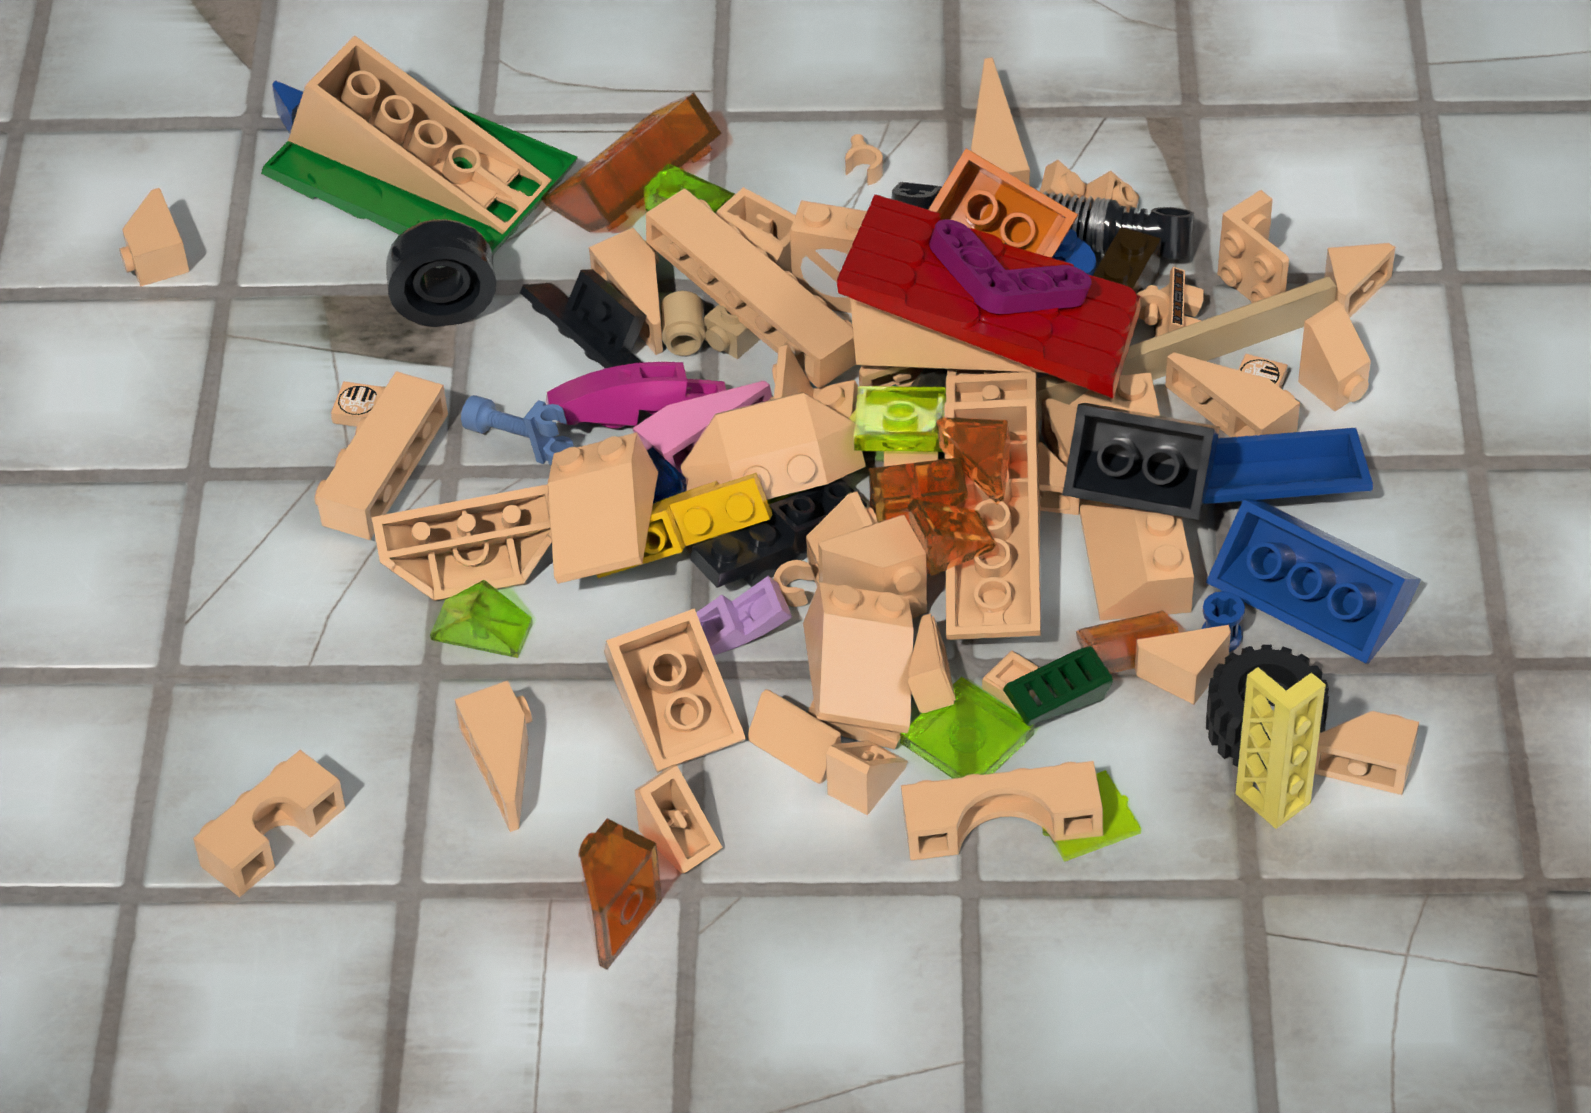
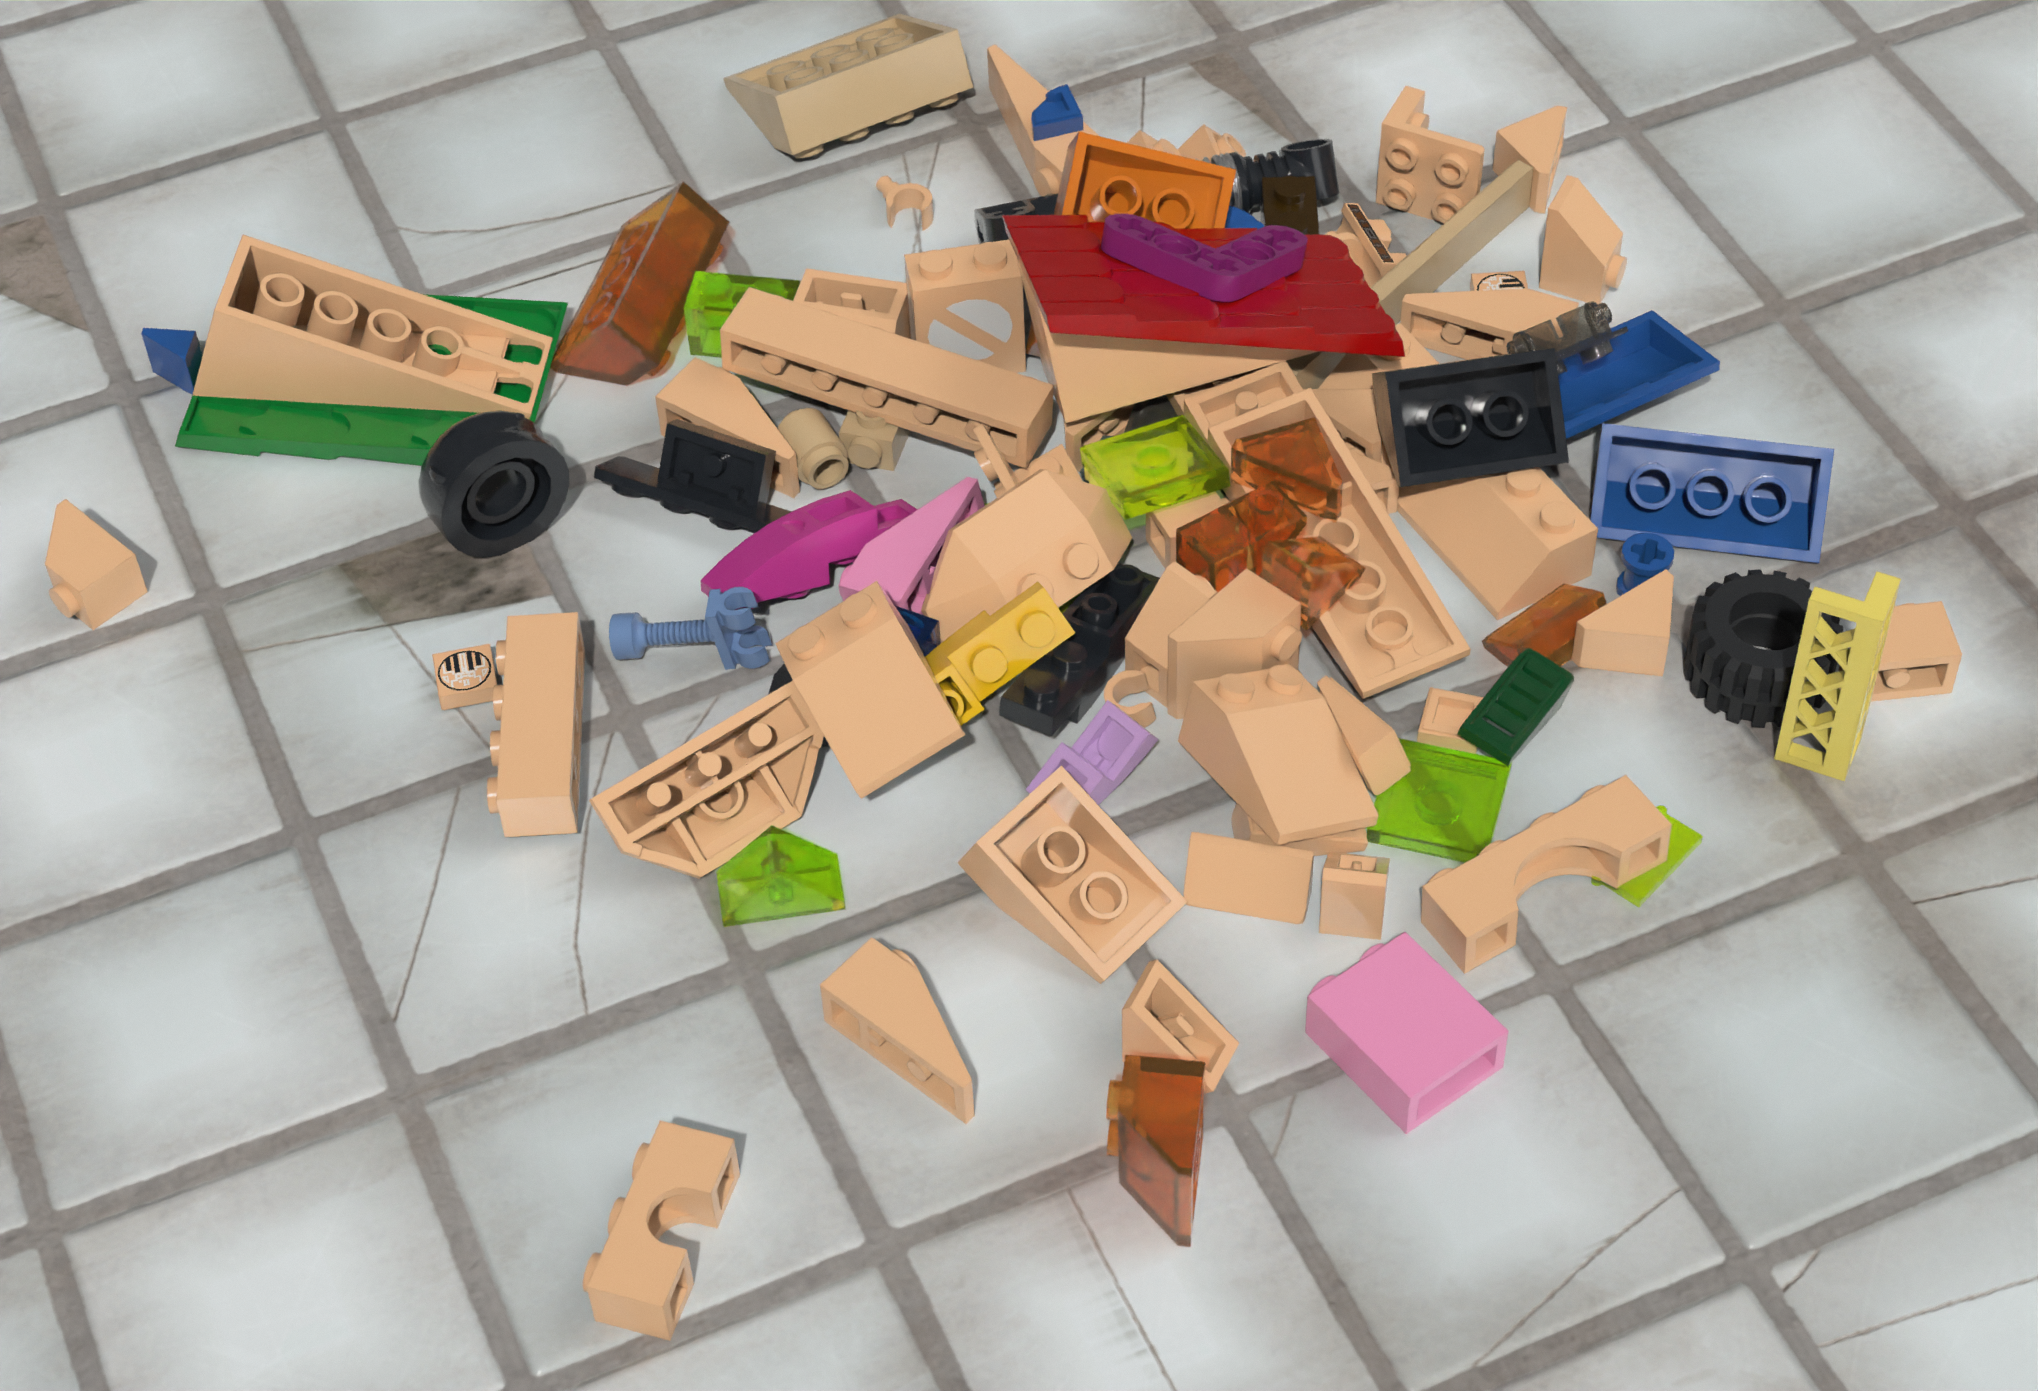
camera: 25 degrees left, 0 degrees up
(834, 882) = (1405, 1031): none -> bright pink brick
(877, 54) = (852, 83): none -> tan slope
(999, 128) = (1056, 115): none -> blue tile
(1276, 428) = (1584, 332): none -> clear smoke hinge

